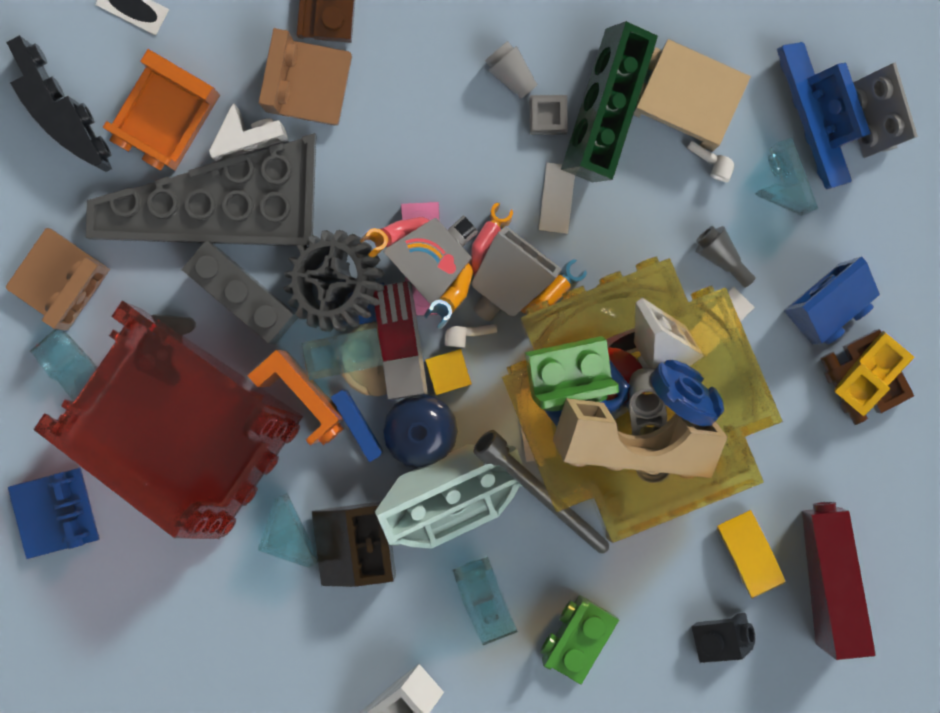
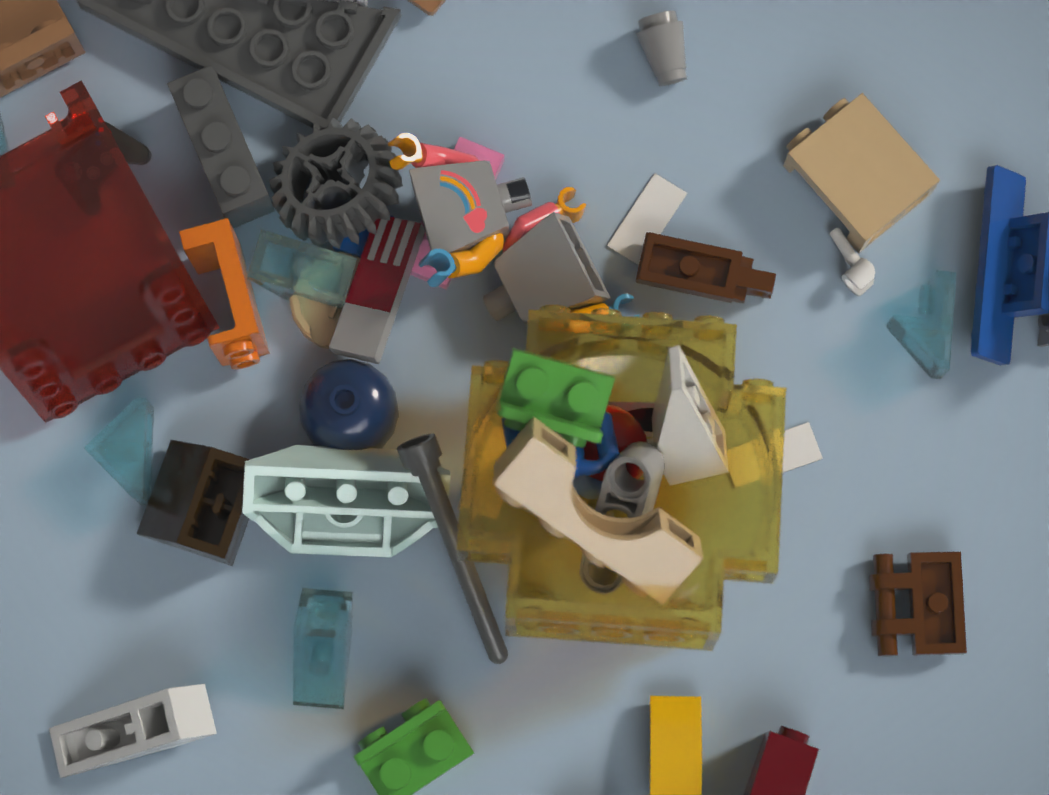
camera: 25 degrees right, 10 degrees down
(357, 425) = (277, 364): blue tile -> none
(448, 371) = (417, 356): yellow tile -> none
(456, 335) = (449, 317): white hand -> none
(548, 115) = (683, 119): light grey tile -> none
(609, 102) = (758, 134): dark green brick -> none
(612, 218) = (701, 270): none -> reddish brown hinge
(684, 393) = (682, 491): blue tile -> none
(720, 250) = (811, 368): dark grey cone -> none
(834, 301) = (919, 490): blue slope -> none
(873, 372) = (926, 597): yellow slope -> none

